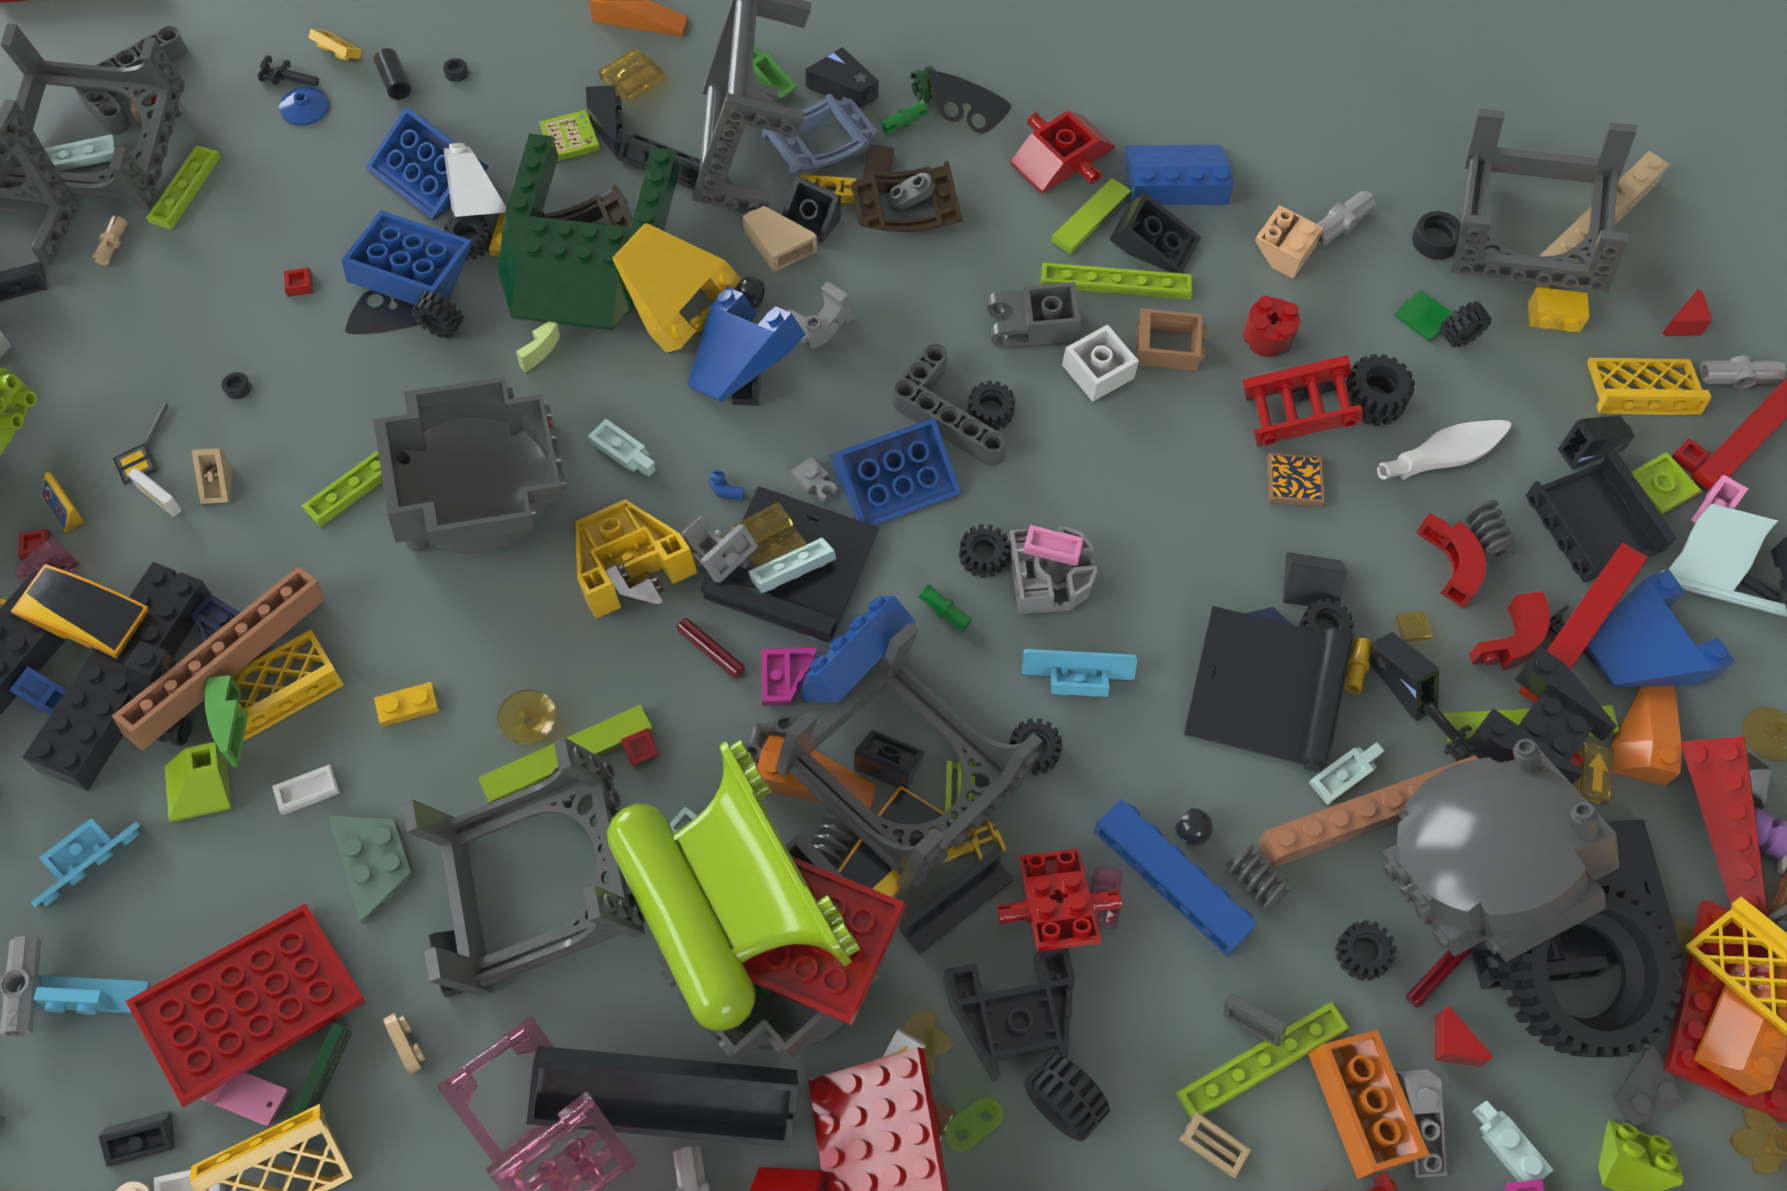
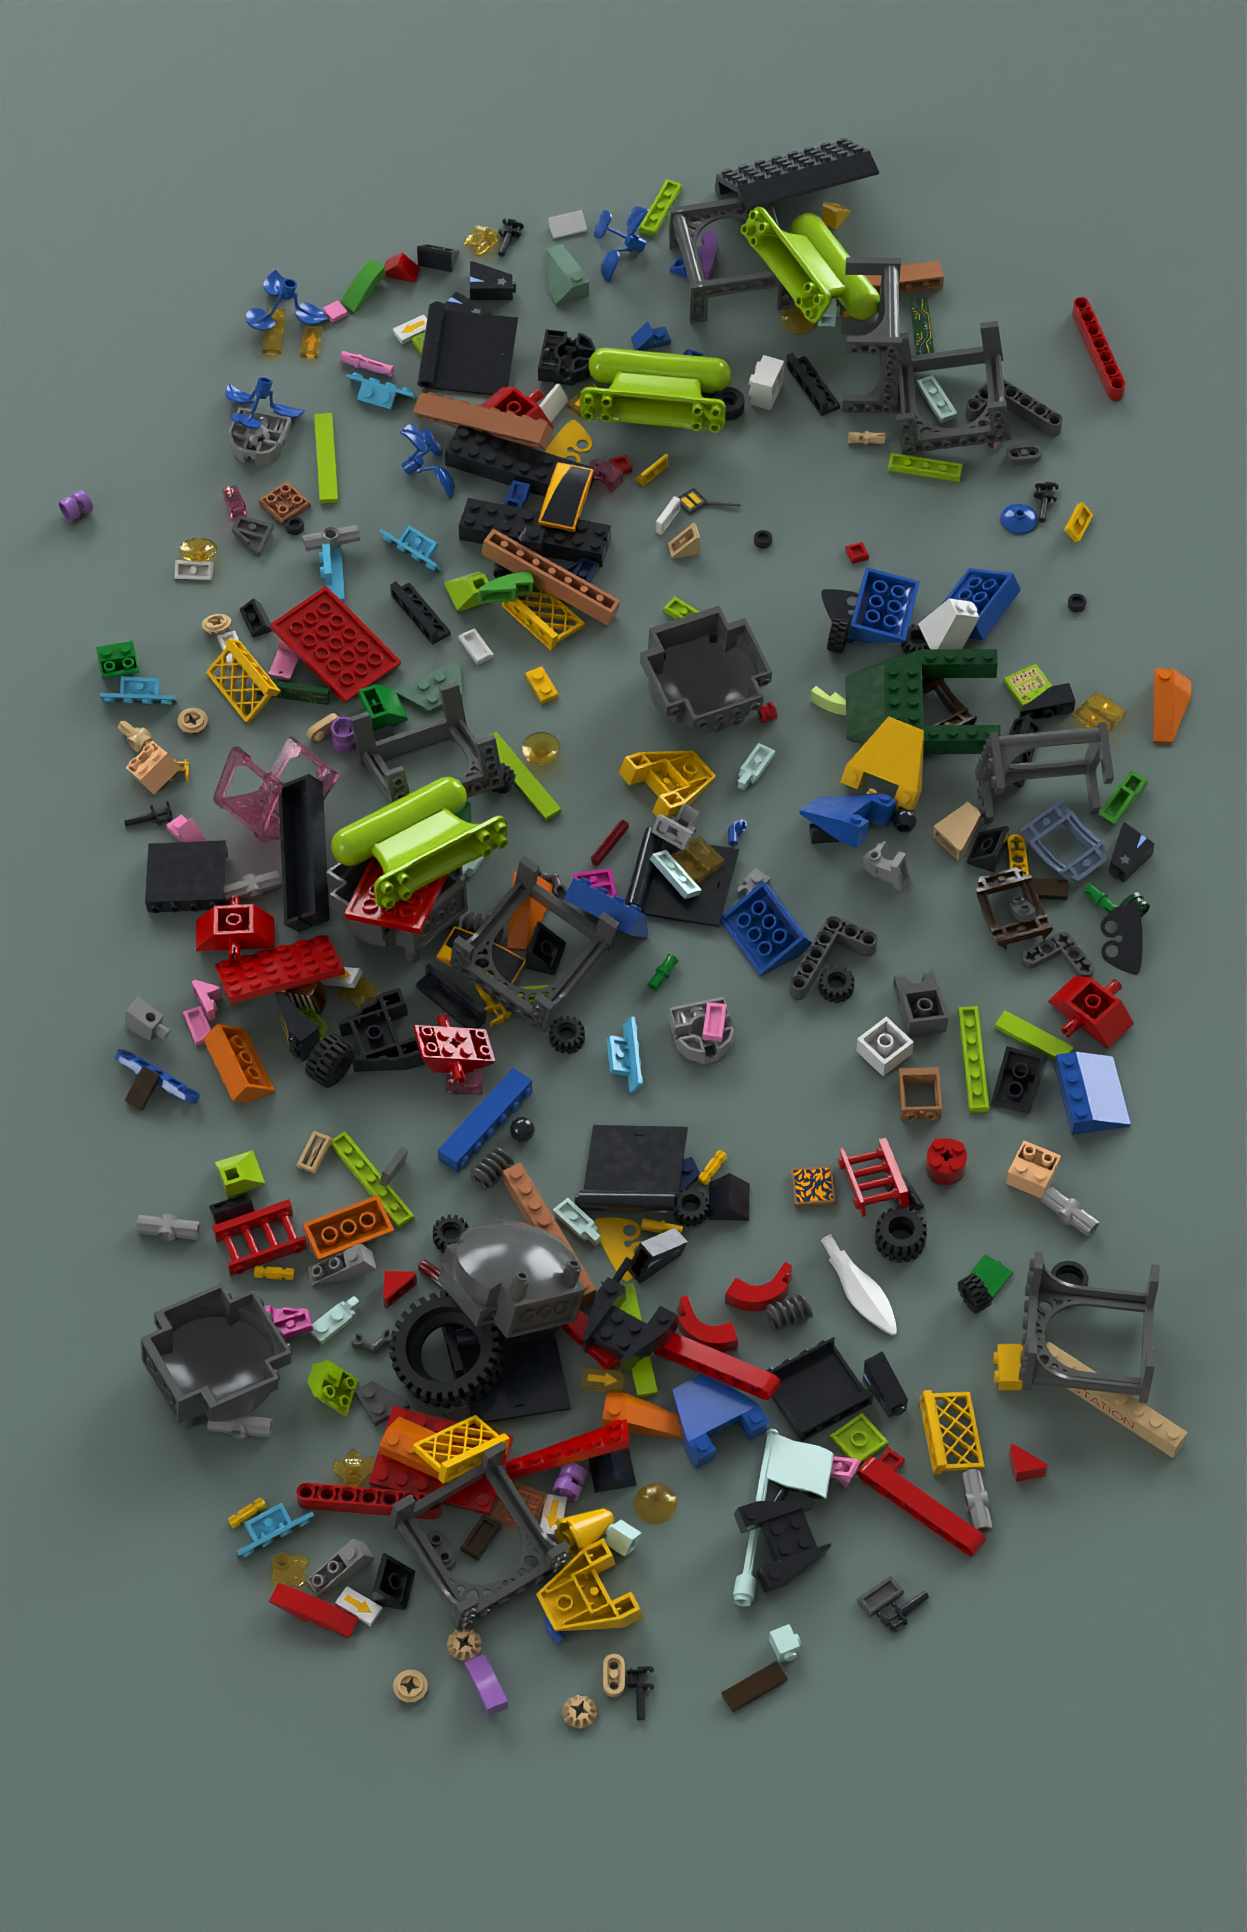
camera: 85 degrees right, 5 degrees down
(205, 80) = (1023, 453): none -> dark grey plate
(216, 869) = (419, 616): none -> black fence
(388, 944) = (382, 706): none -> green slope
(392, 74) = (1058, 563): black pin -> none
(428, 1009) = (342, 735): none -> medium lavender wheel
(639, 746) = (531, 813): red tile -> none
(640, 587) = (642, 793): slope -> none
(988, 537) = (712, 981): black tyre -> none
(995, 152) = (1059, 948): none -> dark grey beam
(999, 1147) = (299, 1030): none -> black slope
(1262, 591) = (712, 1167): none -> yellow axle
(1390, 728) = (614, 1238): none -> yellow piece
(1413, 626) = (701, 1266): clear yellow tile -> none
(1555, 1087) = (373, 1347): none -> dark grey arm

